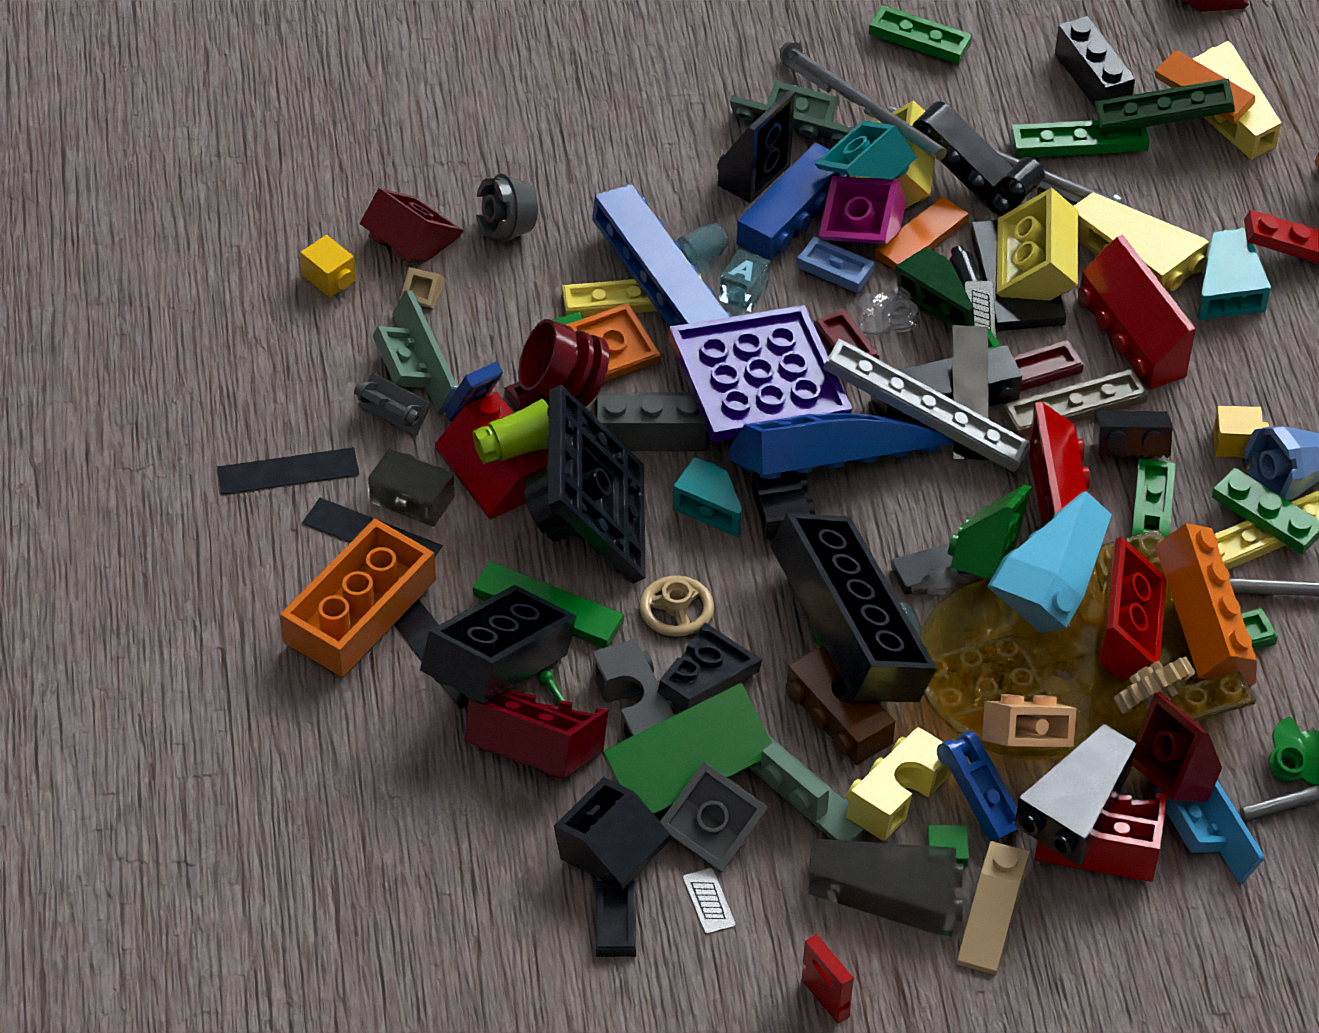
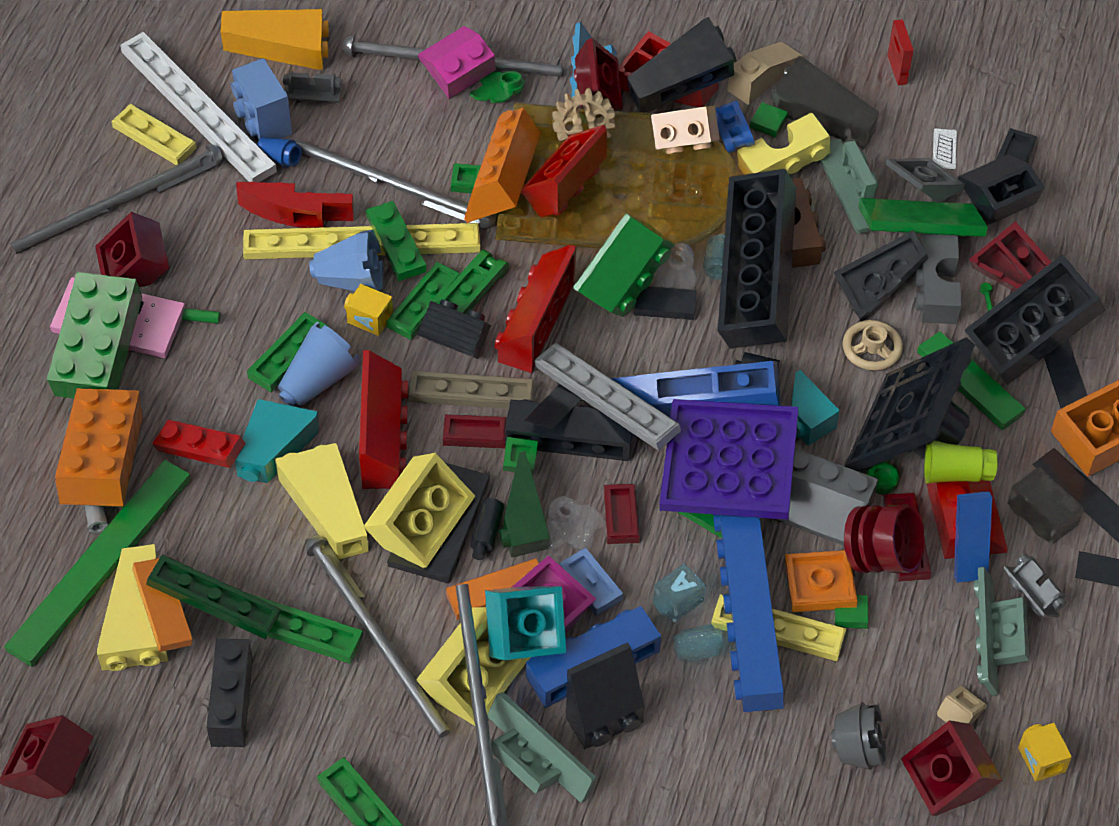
camera: 155 degrees left, 5 degrees up
(977, 163) = (412, 606): black beam -> none
(982, 299) = (496, 488): clear sticker -> none
(1054, 566) = (596, 213): medium azure wedge -> none
(1192, 476) = (411, 312): none -> green tile
(1240, 354) = (316, 366): none -> medium blue cone
(1286, 365) = (275, 361): none -> green plate
(1300, 132) = (97, 563): none -> green tile

